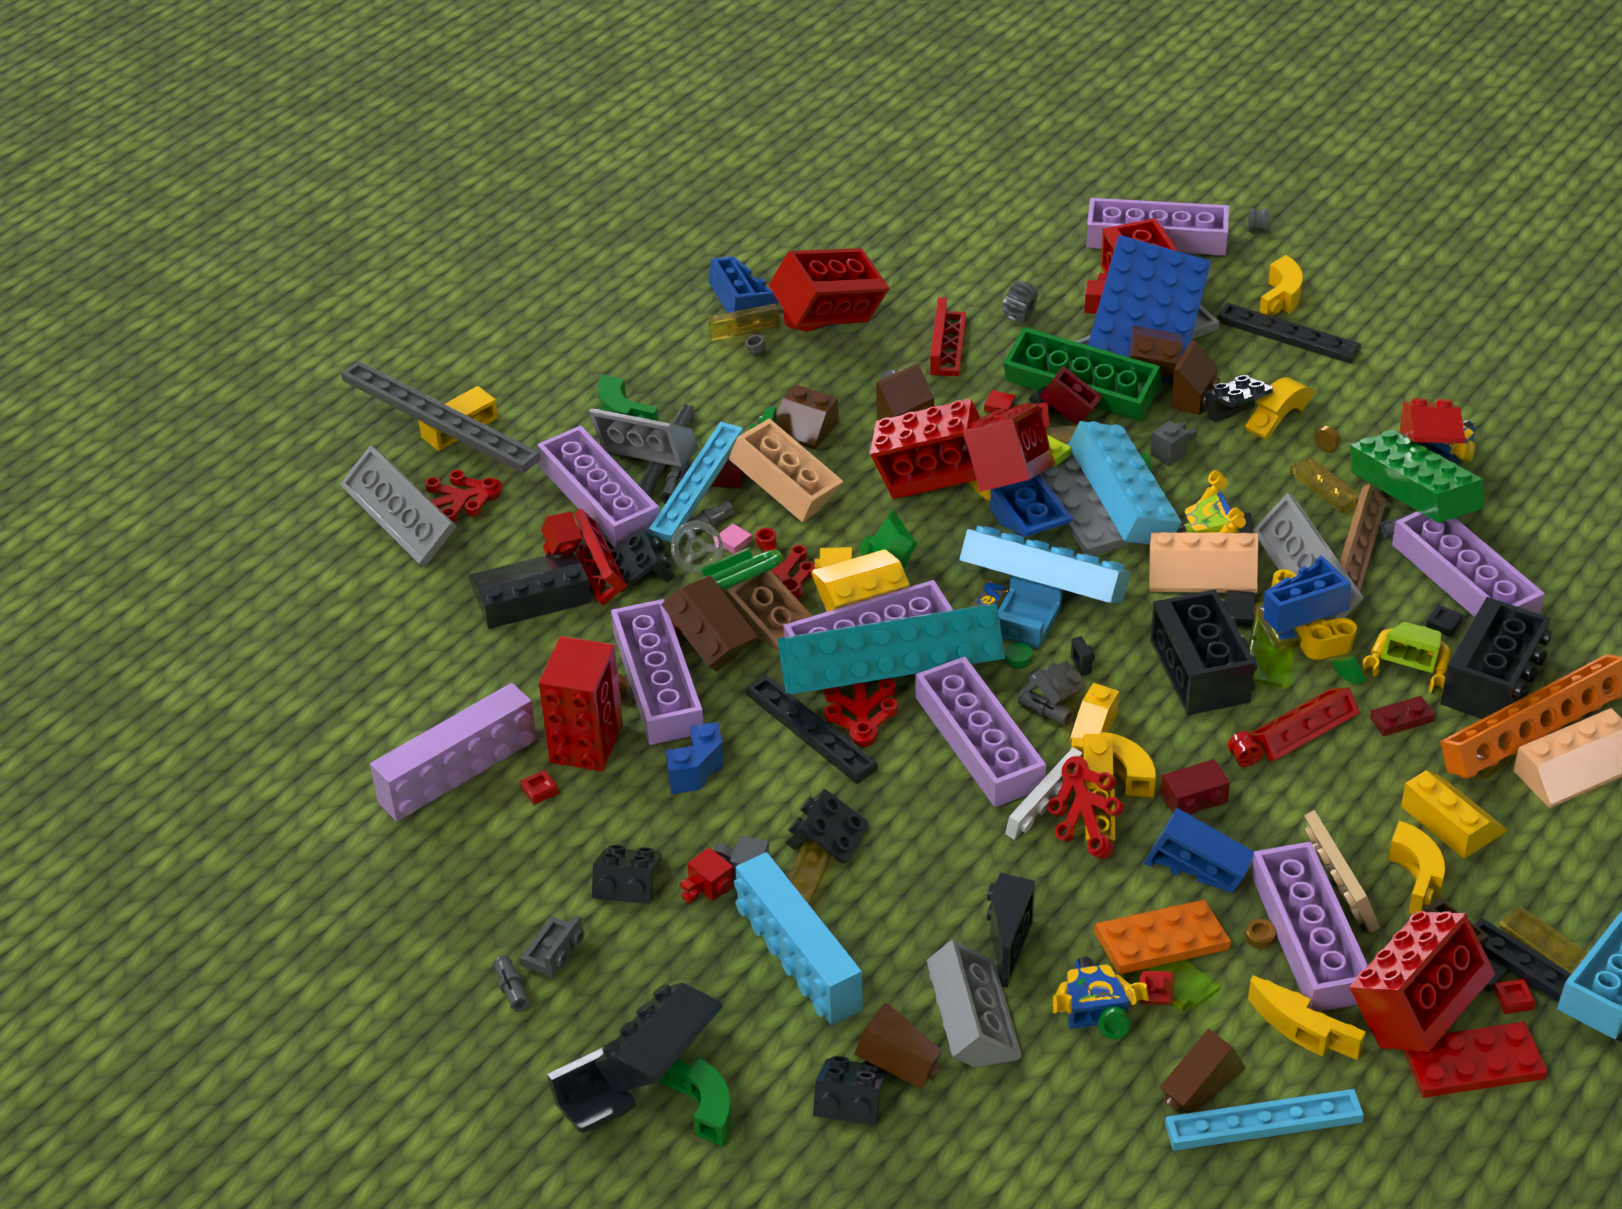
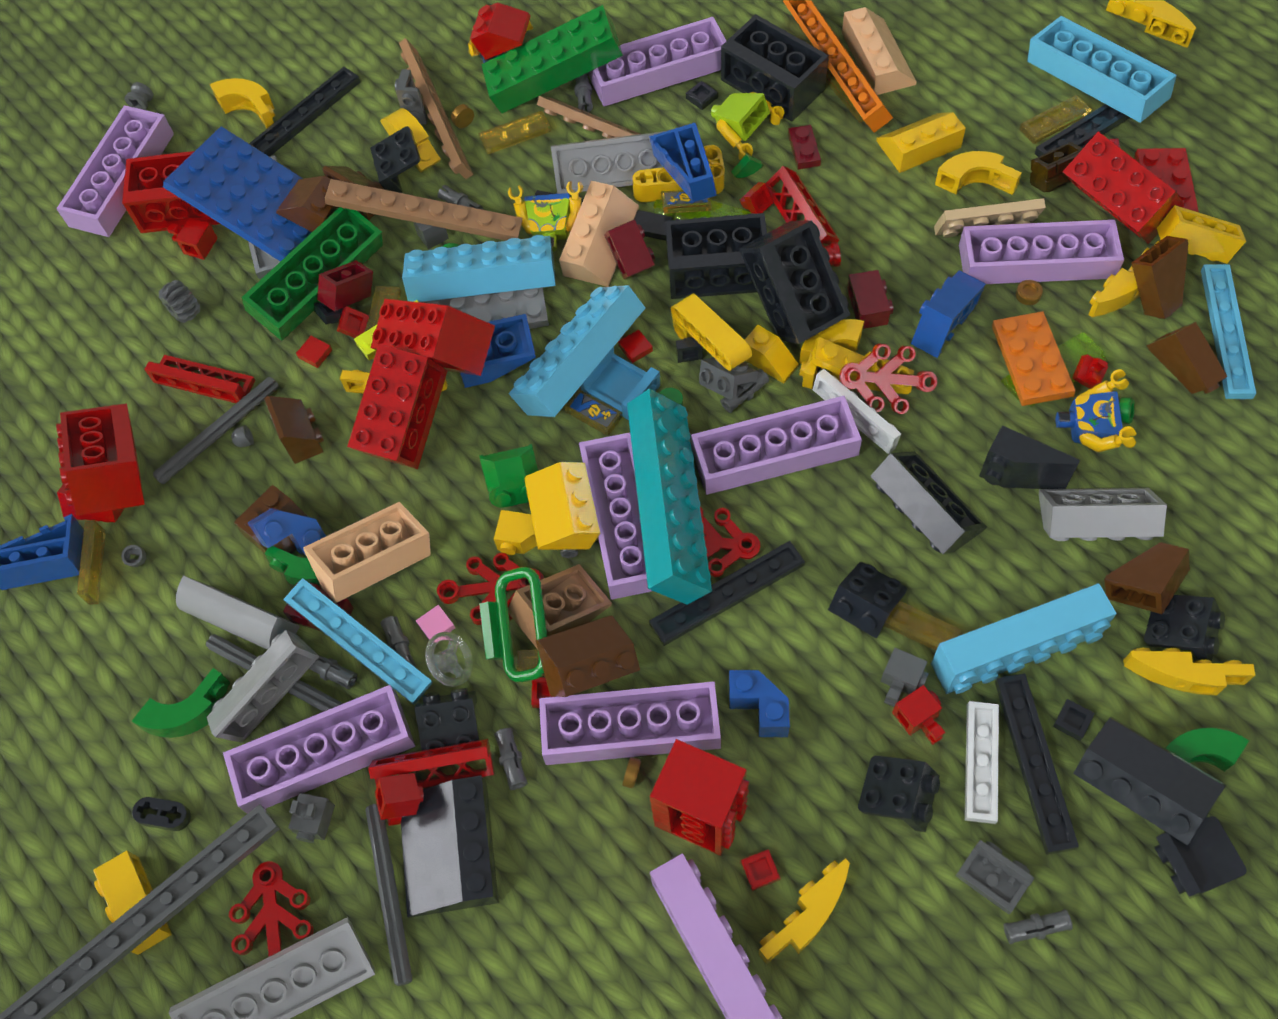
camera: 75 degrees left, 20 degrees up
(478, 561) = (388, 897): none -> dark grey axle
(503, 823) = (817, 904): none -> yellow slope
(529, 418) = (160, 820): none -> black beam
(540, 496) = (310, 817): none -> dark grey brick
(603, 611) = (510, 758): none -> dark grey pin
(667, 929) = (982, 762): none -> white plate
(674, 969) = (1036, 764): none -> black plate
(715, 402) = (230, 613): none -> light grey brick
(729, 995) = (1073, 720): none -> black plate
(796, 1088) = (1179, 672): none -> yellow slope
(798, 412) = (277, 524): none -> blue brick
(894, 361) = (215, 430): none -> dark grey axle
(950, 862) = (927, 501): none -> slope
(1077, 620) = (635, 346): none -> red tile
(1104, 642) = (696, 320): none -> yellow beam
(1168, 696) = (795, 281): none -> black brick
(1171, 424) = (422, 210): none -> medium nougat plate
(1187, 577) = (630, 249): none -> dark red brick
(1214, 460) = (454, 197): none -> dark grey pin
(1300, 1026) = (1162, 276): none -> reddish brown slope
(1302, 681) = (757, 199): none -> red tile
(1326, 390) = (409, 96): none -> dark grey bracket
(1333, 414) = (436, 111): none -> medium nougat plate
(1387, 1069) = (1205, 234): none -> yellow brick

